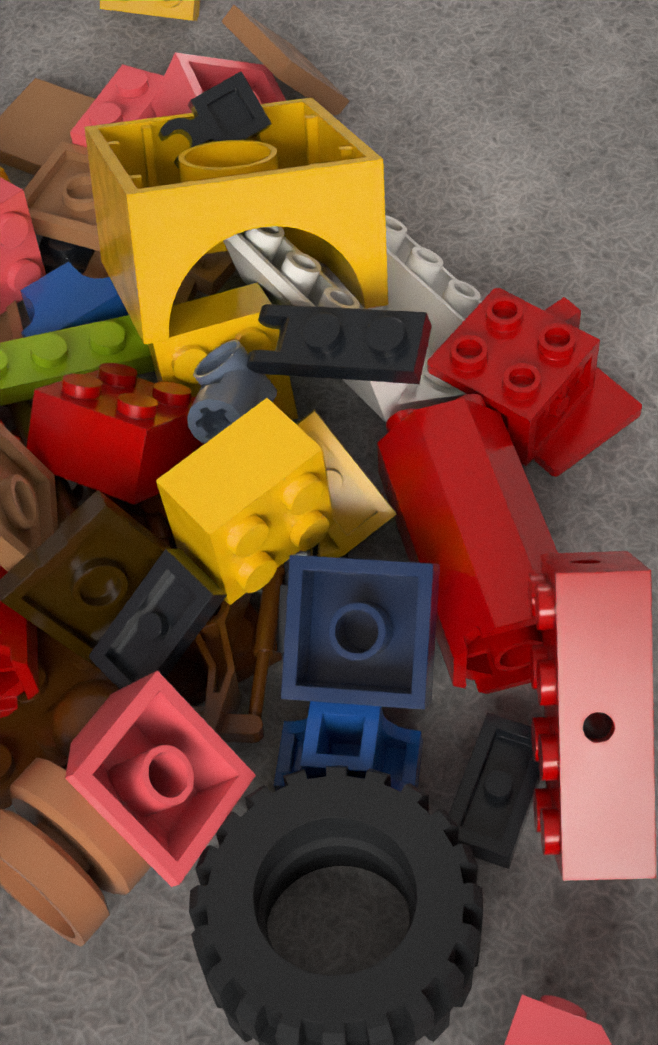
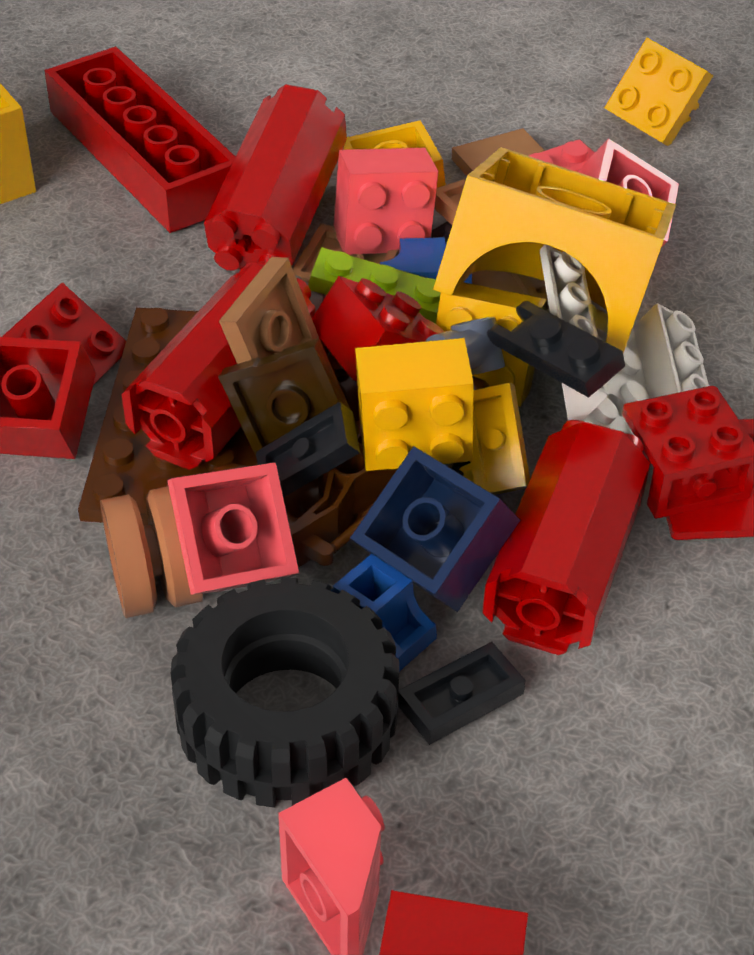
camera: 30 degrees right, 10 degrees down
(221, 114) = (597, 178): black plate -> none
(284, 60) = (698, 190): medium nougat tile -> none
(597, 714) = (538, 654): brick -> none

